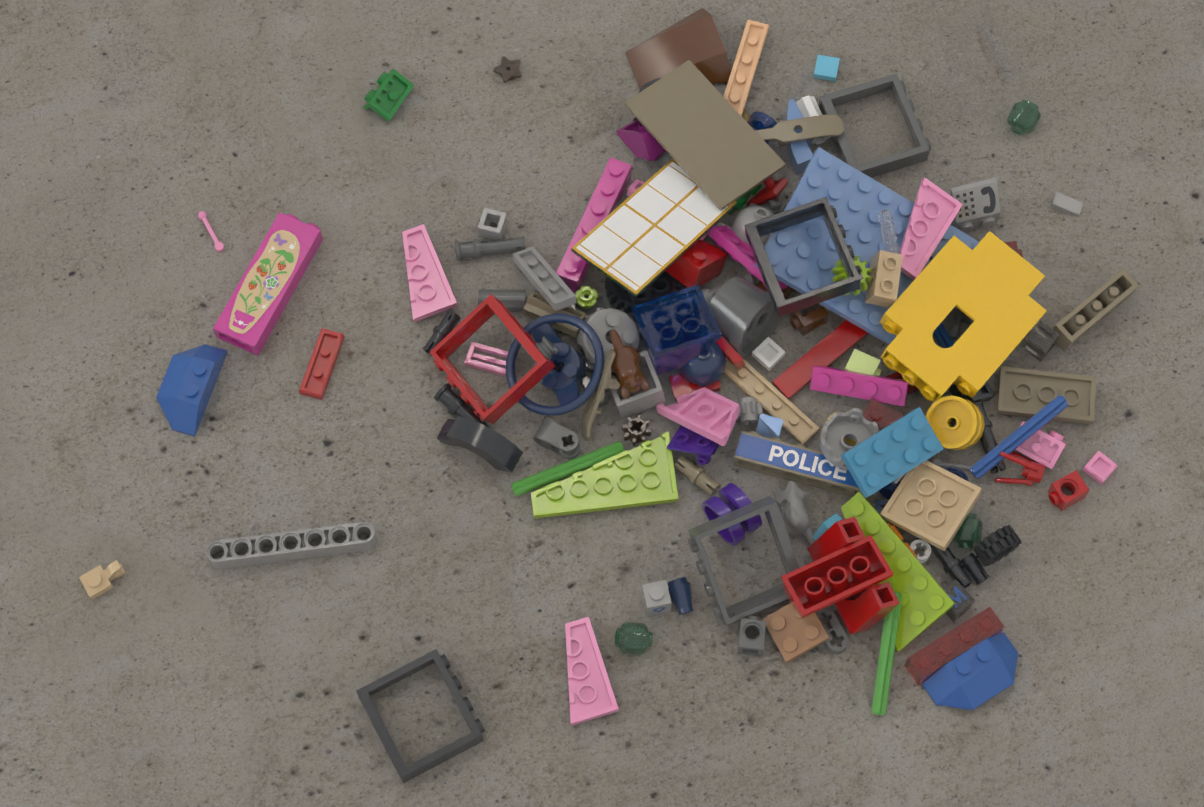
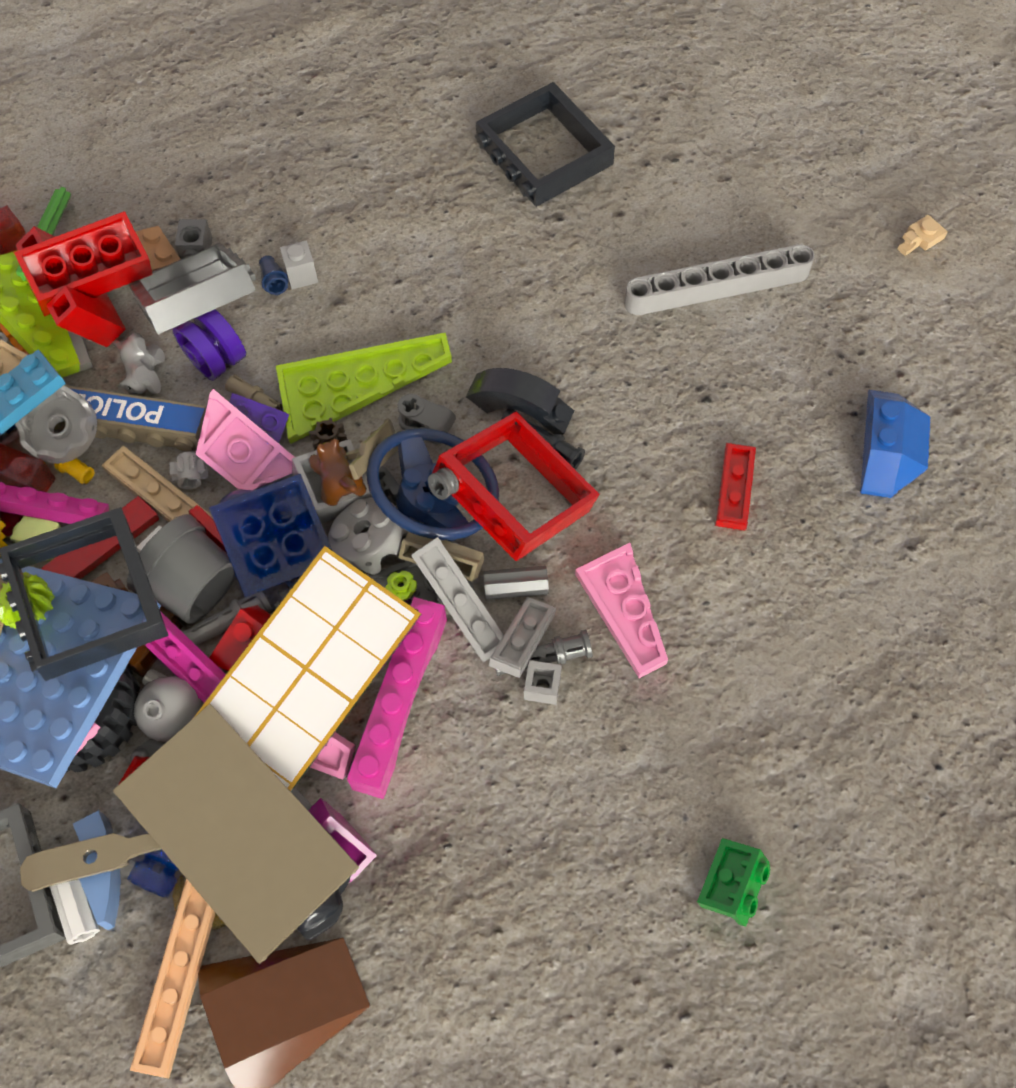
camera: 175 degrees right, 5 degrees down
(219, 247) = (916, 627): bright pink hinge -> none
(268, 283) = (832, 576): brick -> none
(441, 331) = (589, 534): black pin -> none
(484, 366) = (528, 518): bright pink tile -> none
(501, 254) = (522, 637): none -> light grey tile
(512, 73) = (557, 959): dark brown plate -> none
(565, 469) = (421, 388): bright green axle -> none
(587, 677) = (372, 194): bright pink wing -> none
(633, 638) = (324, 227): clear green head -> none
(769, 426) = (157, 455): light blue slope -> none
(826, 68) = (45, 1007): medium azure tile -> none
(826, 525) = (99, 348): medium azure tile -> none

